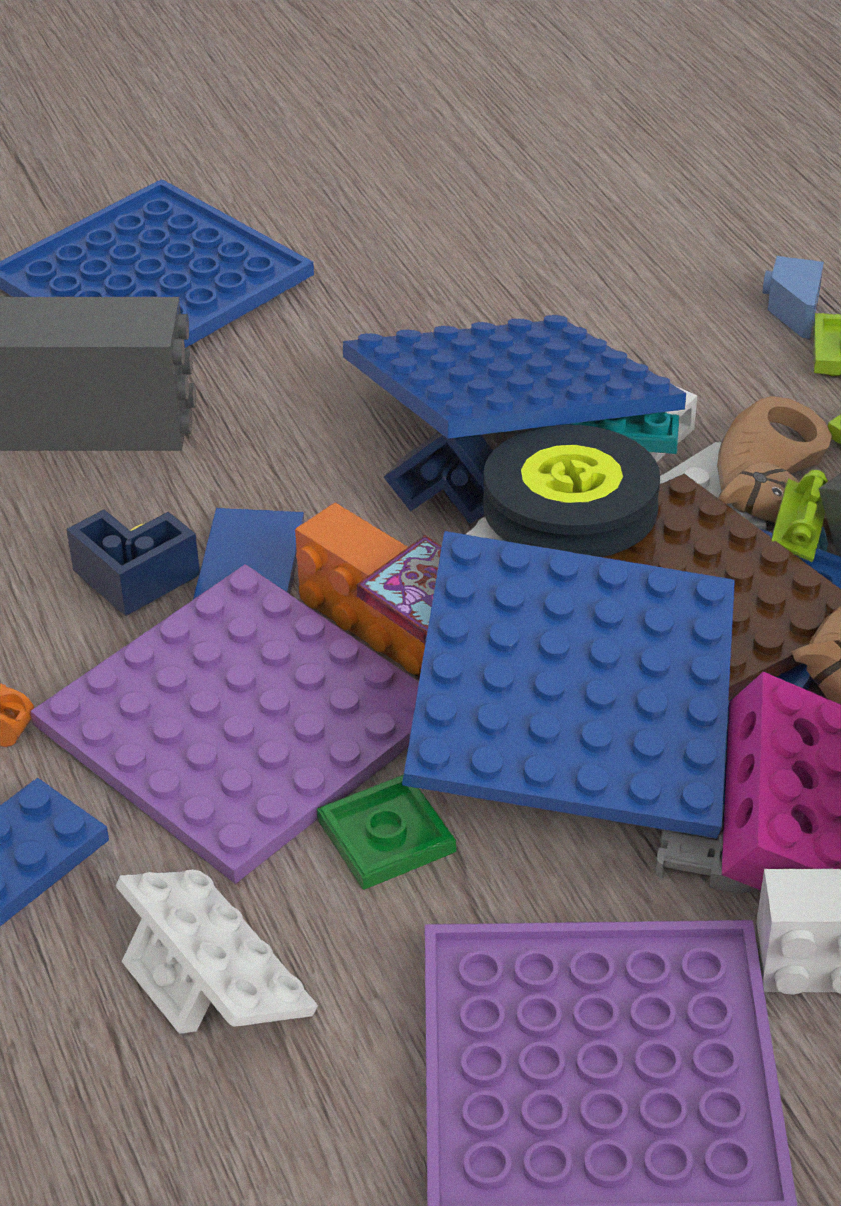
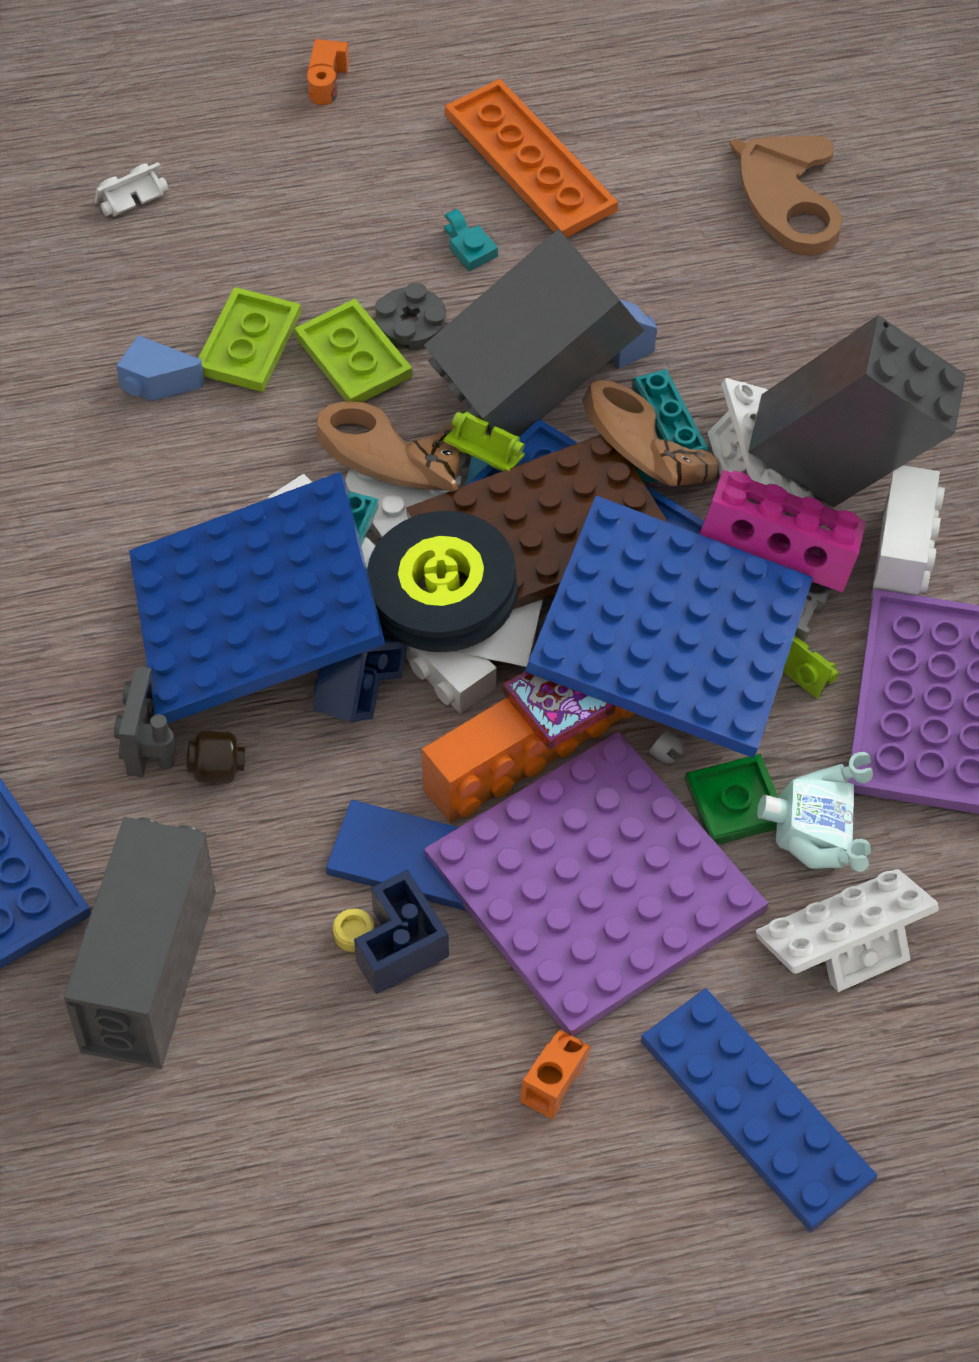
camera: 80 degrees left, 15 degrees up
(323, 337) = (139, 729): none -> dark grey plate
(325, 407) = (215, 757): none -> dark brown head
(358, 892) = (817, 816): none -> light aqua torso
(603, 876) = (809, 668): none -> lime hinge

